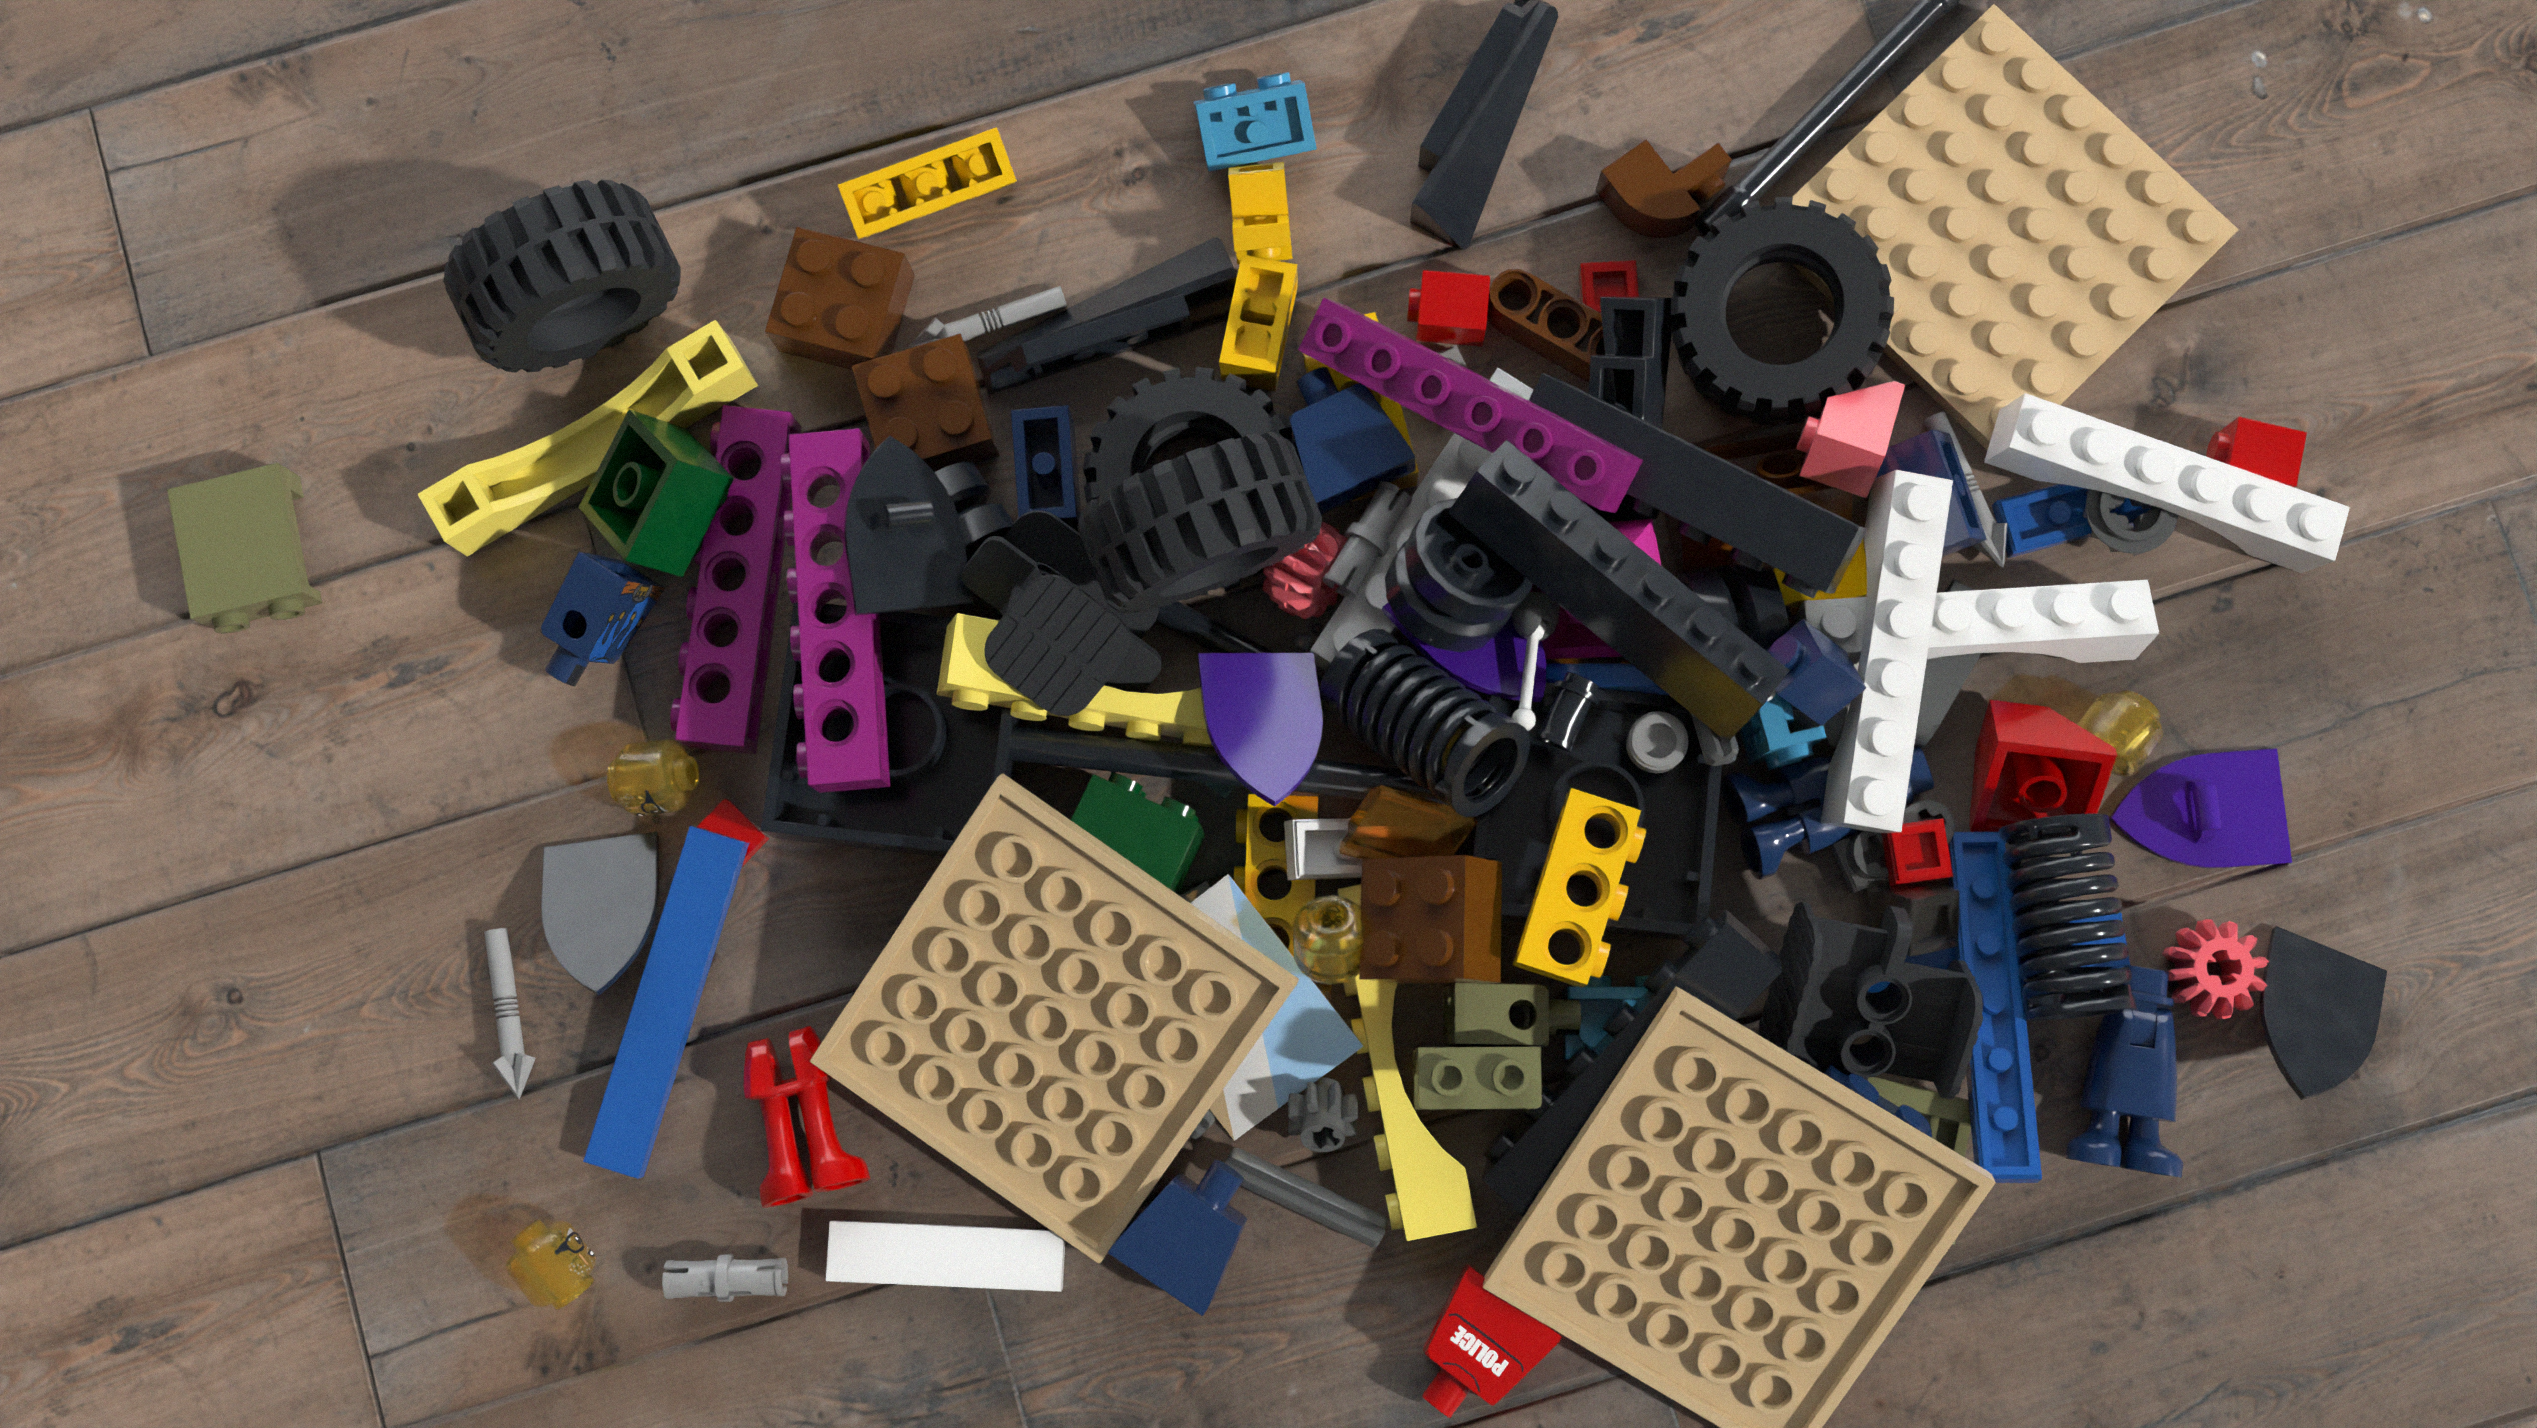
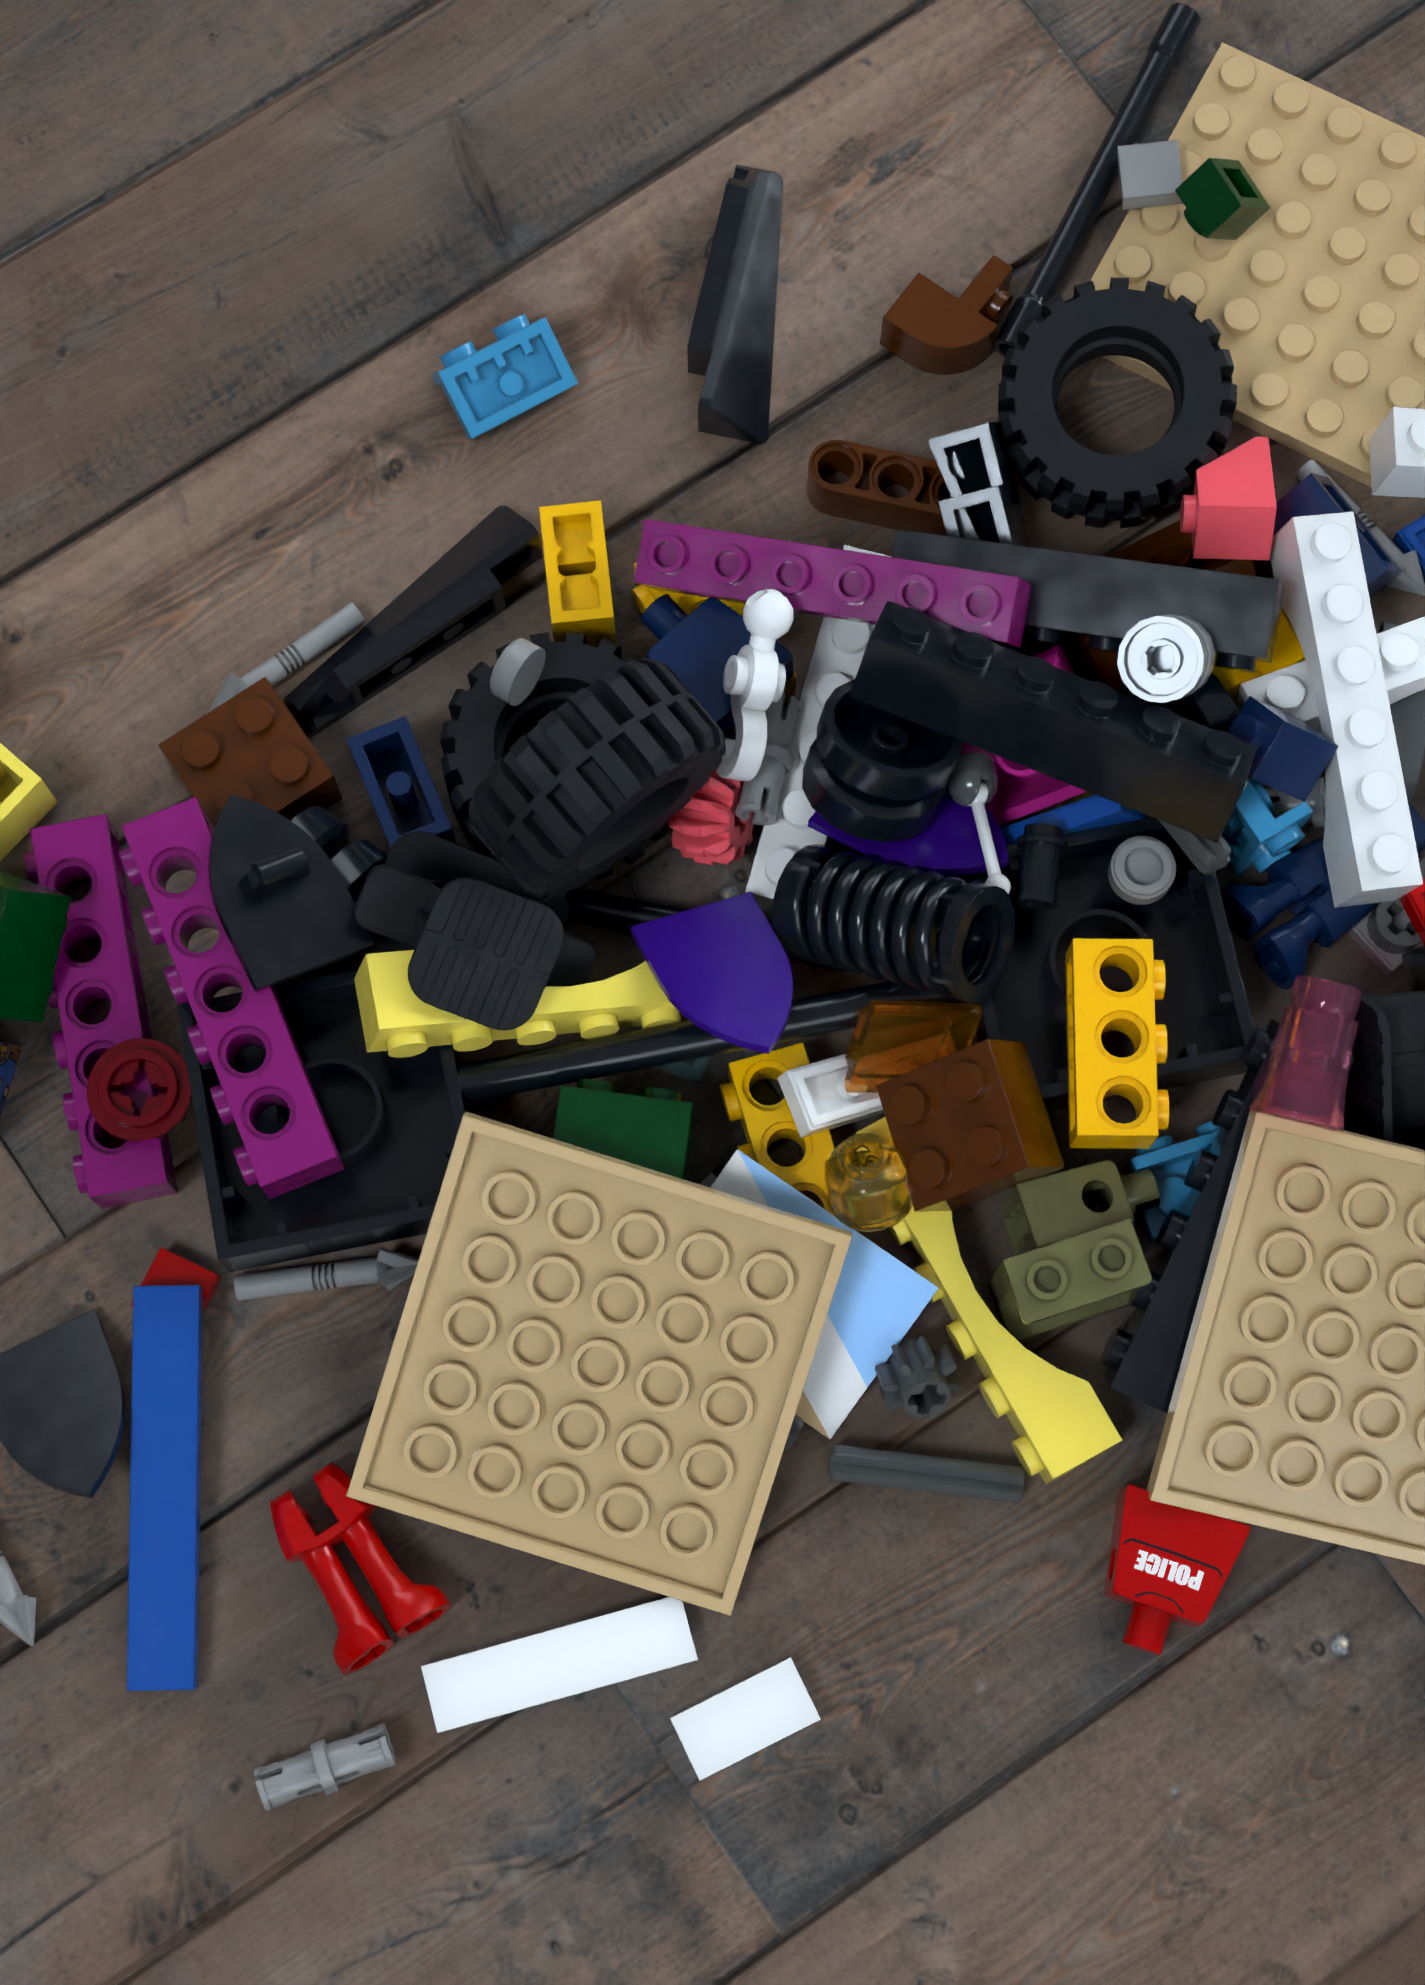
camera: 25 degrees left, 5 degrees down
(551, 1263) = (126, 1813): clear yellow head -> none
(652, 777) = (74, 1249): clear yellow head -> none
(732, 638) = (120, 1069): none -> dark red gear
(839, 300) = (119, 684): reddish brown brick -> none
(907, 875) = (388, 1268): none -> light grey piece
(927, 183) = (177, 535): yellow brick -> none
(1084, 1353) = (745, 1718): none -> white tile
(1171, 399) = (517, 671): none -> light grey tile
(1186, 1236) = (815, 1553): dark blue torso -> none
(1260, 211) = (541, 462): yellow brick -> none
(1370, 473) = (755, 681): none -> white piece
(1450, 308) = (773, 500): red brick -> none
(1607, 280) = (915, 428): red tile -> none
(1734, 566) = (1166, 657): none -> wheel
(1741, 962) = (1311, 1055): none -> clear pink plant
(1884, 109) = (1149, 174): none -> light grey tile
(1939, 153) = (1221, 199): none -> dark green plate

